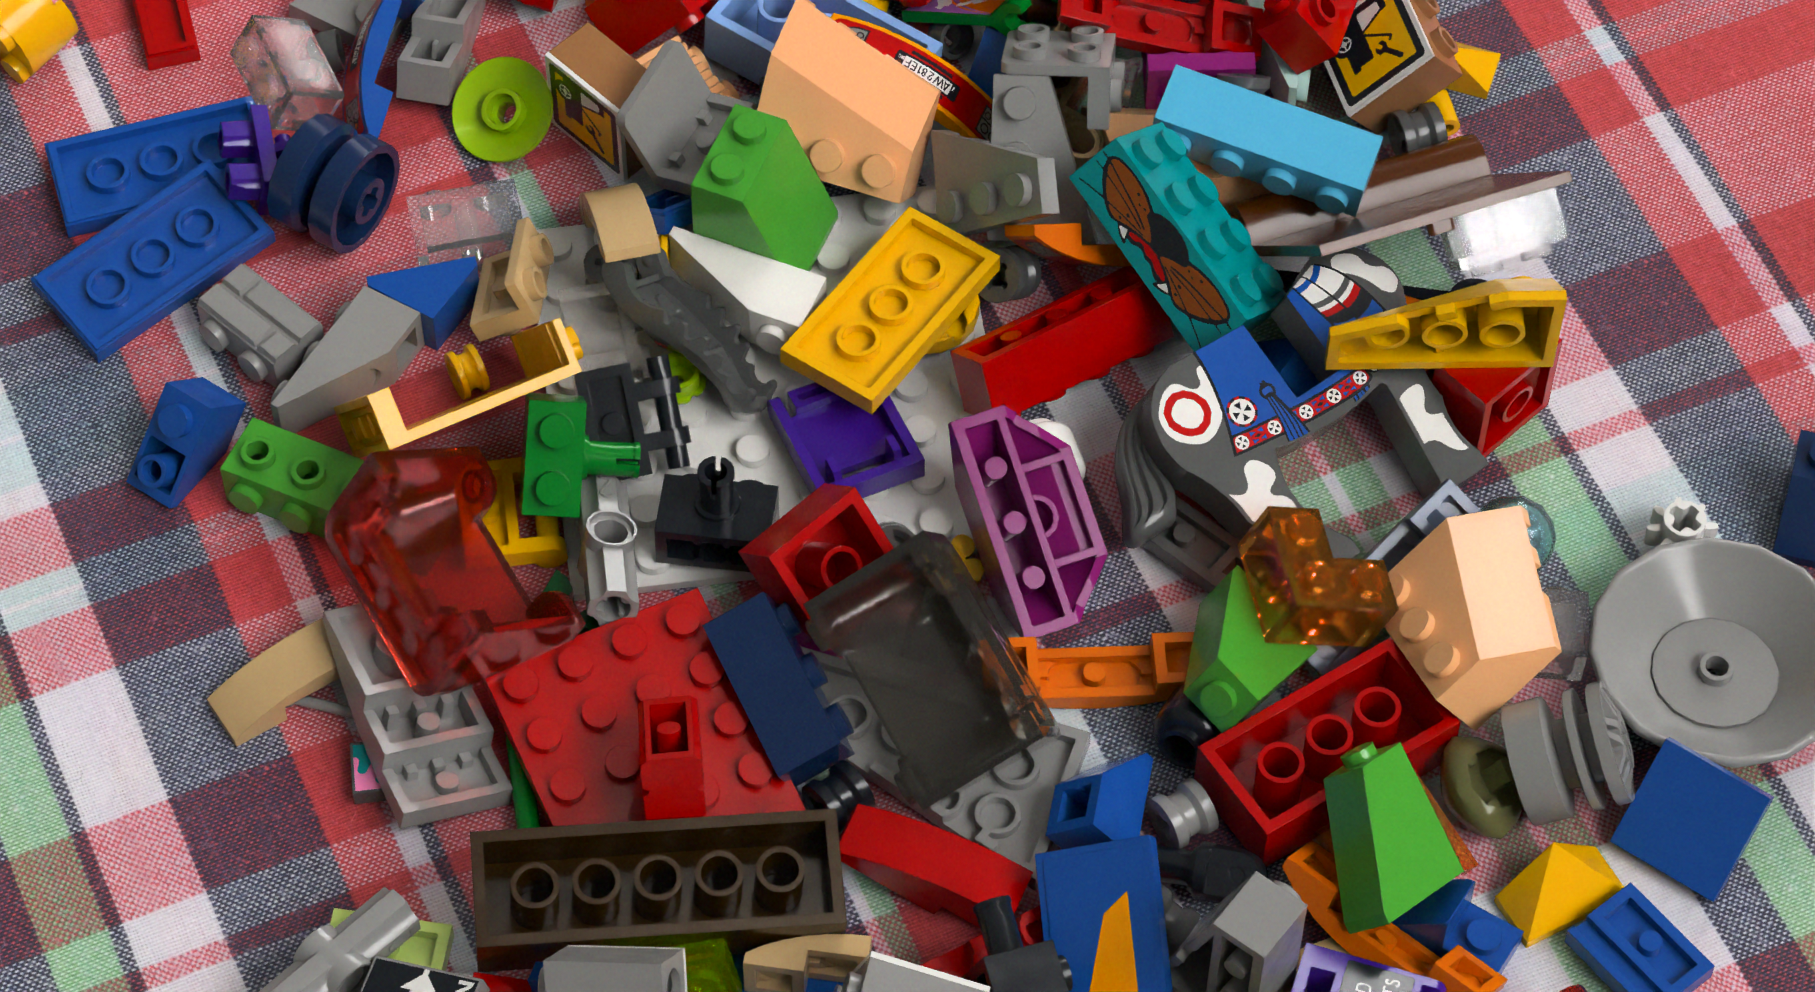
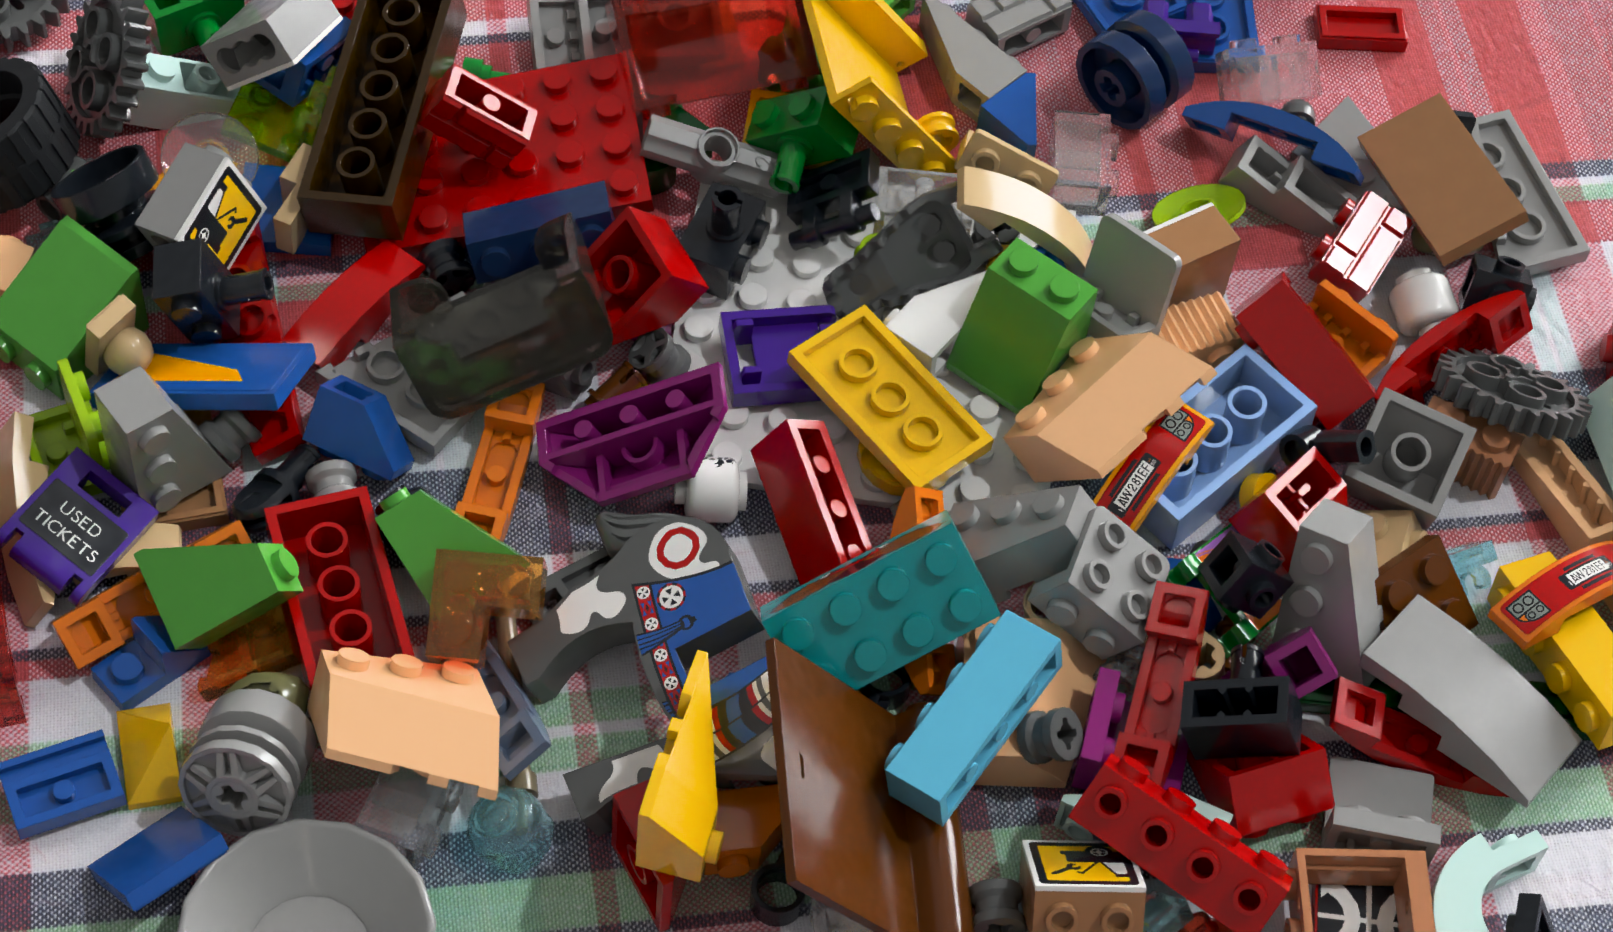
camera: 100 degrees right, 0 degrees up
(990, 184) = (974, 482): light grey wing -> none

